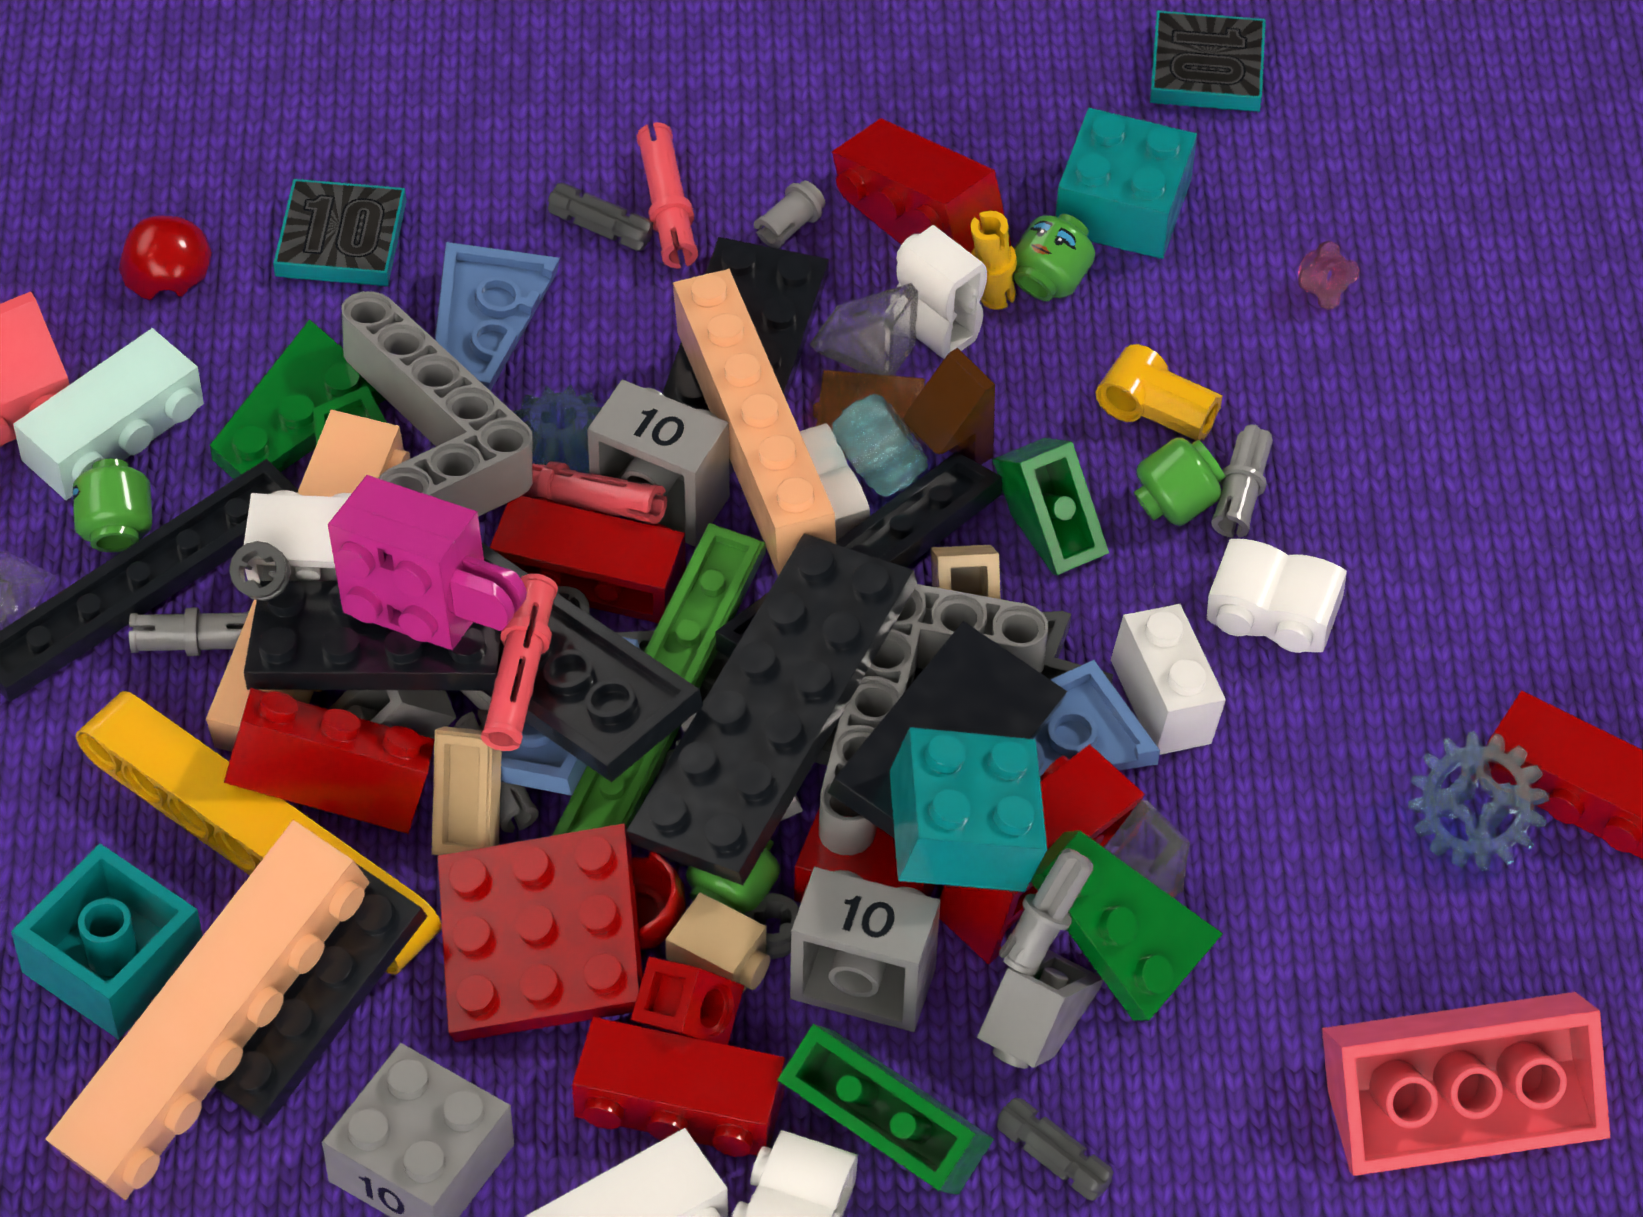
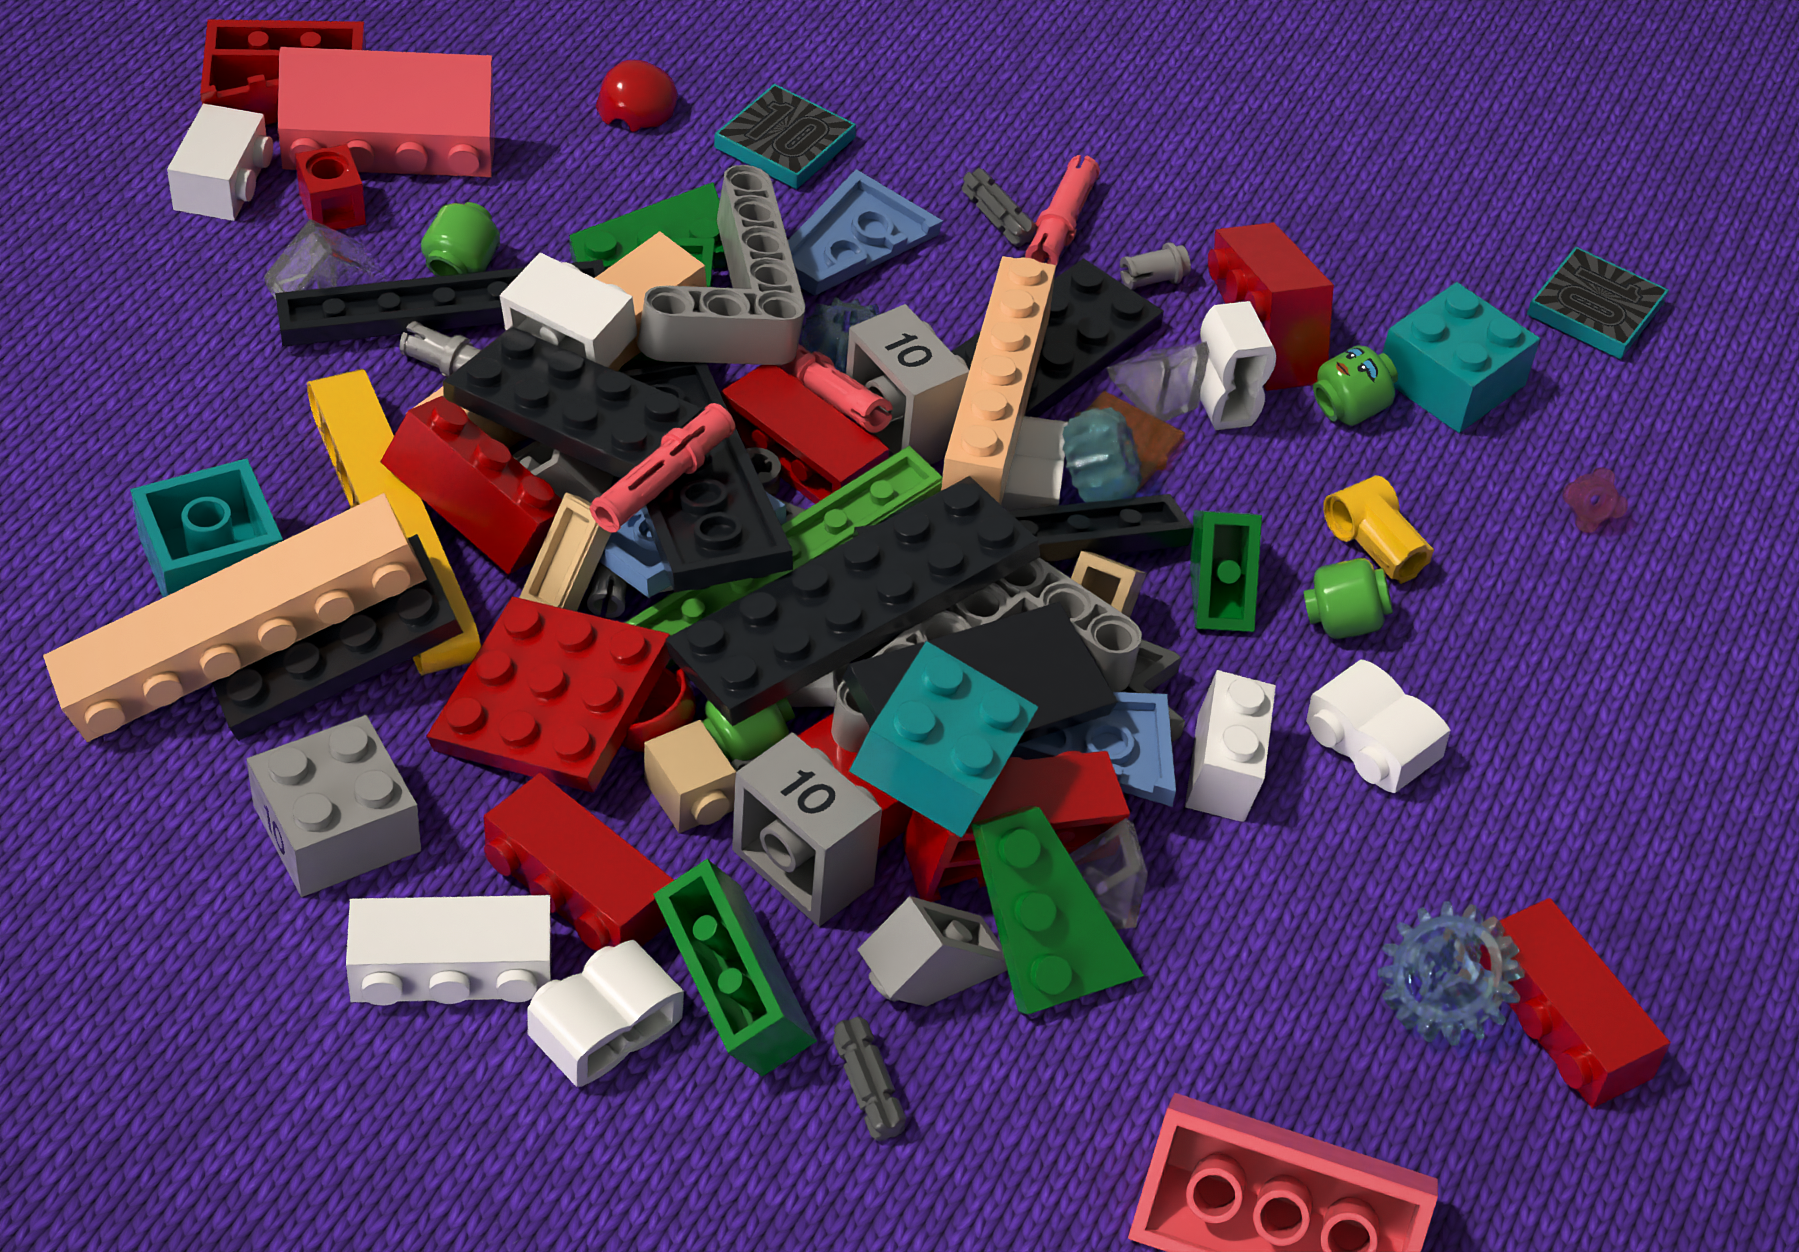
camera: 25 degrees right, 5 degrees down
(109, 411) = (513, 176): light aqua brick -> none
(268, 554) = (492, 296): dark grey bush -> none
(418, 565) = (614, 345): dark pink brick -> none
(687, 1001) = (614, 785): red brick -> none
(956, 410) = (1181, 455): reddish brown slope -> none
(993, 250) = (1296, 360): yellow pin -> none
(1046, 913) = (967, 861): light grey axle -> none
(1242, 482) = (1408, 626): light grey axle -> none

